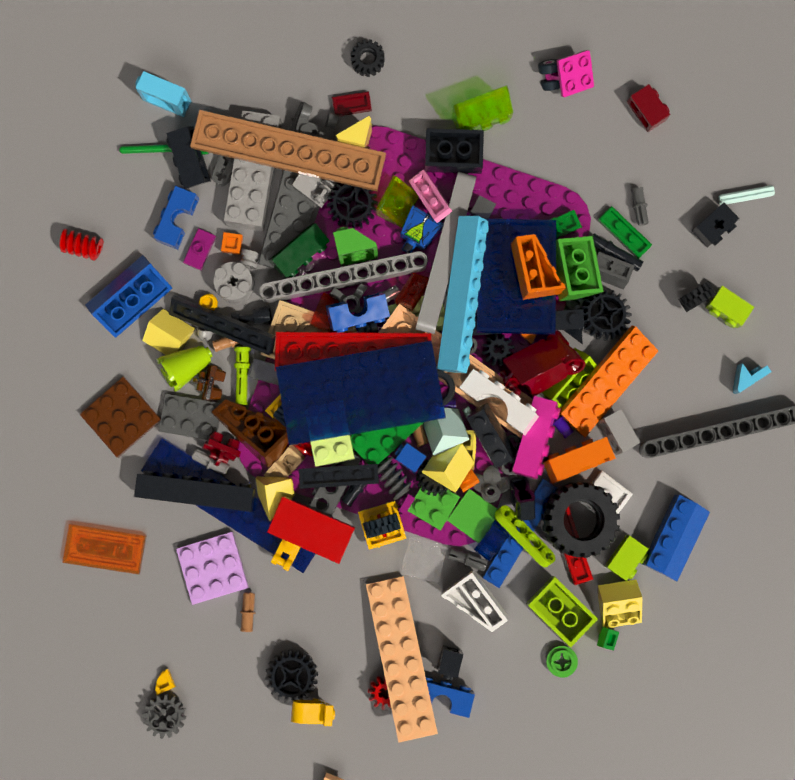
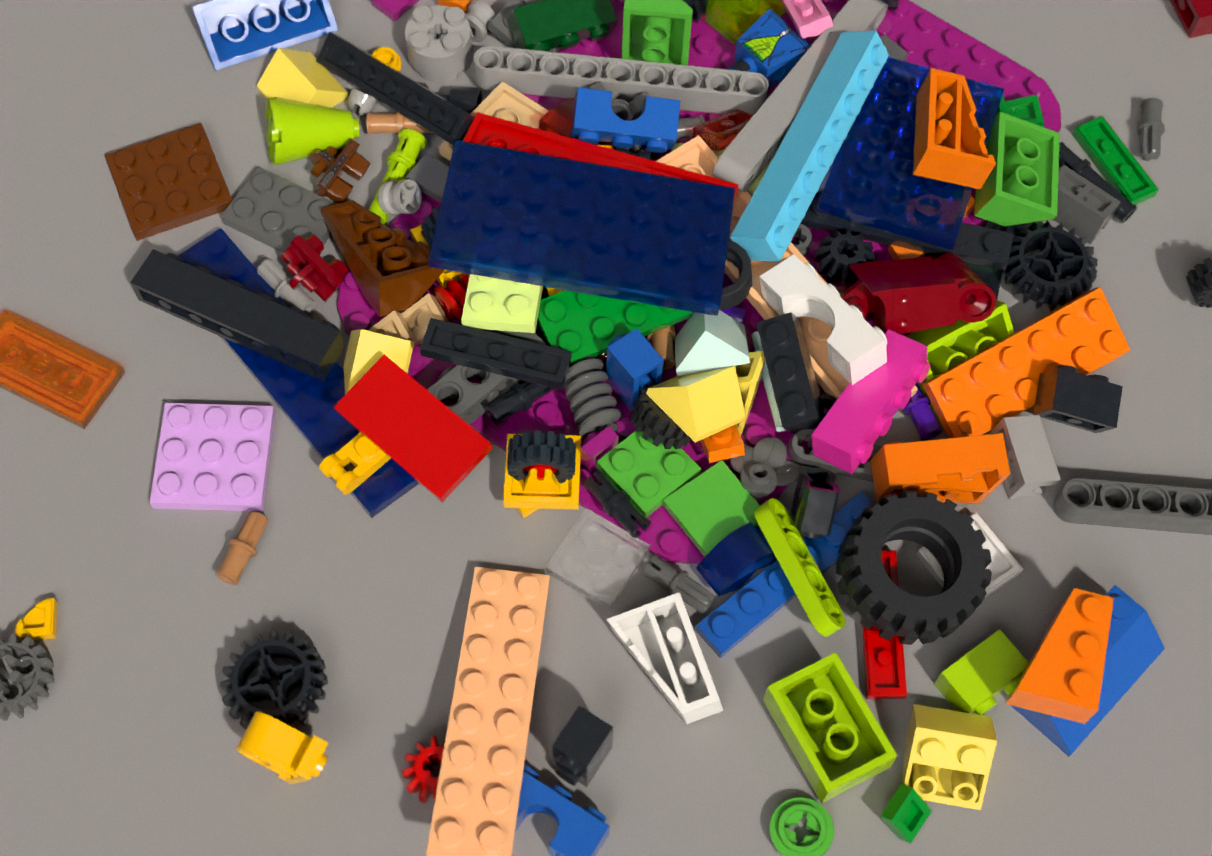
camera: 15 degrees right, 20 degrees down
(250, 391) = (399, 197): none -> light grey wheel
(424, 530) = (617, 503): none -> black pin
(639, 394) = (1078, 399): none -> black brick
(666, 549) = (1070, 660): none -> orange wedge

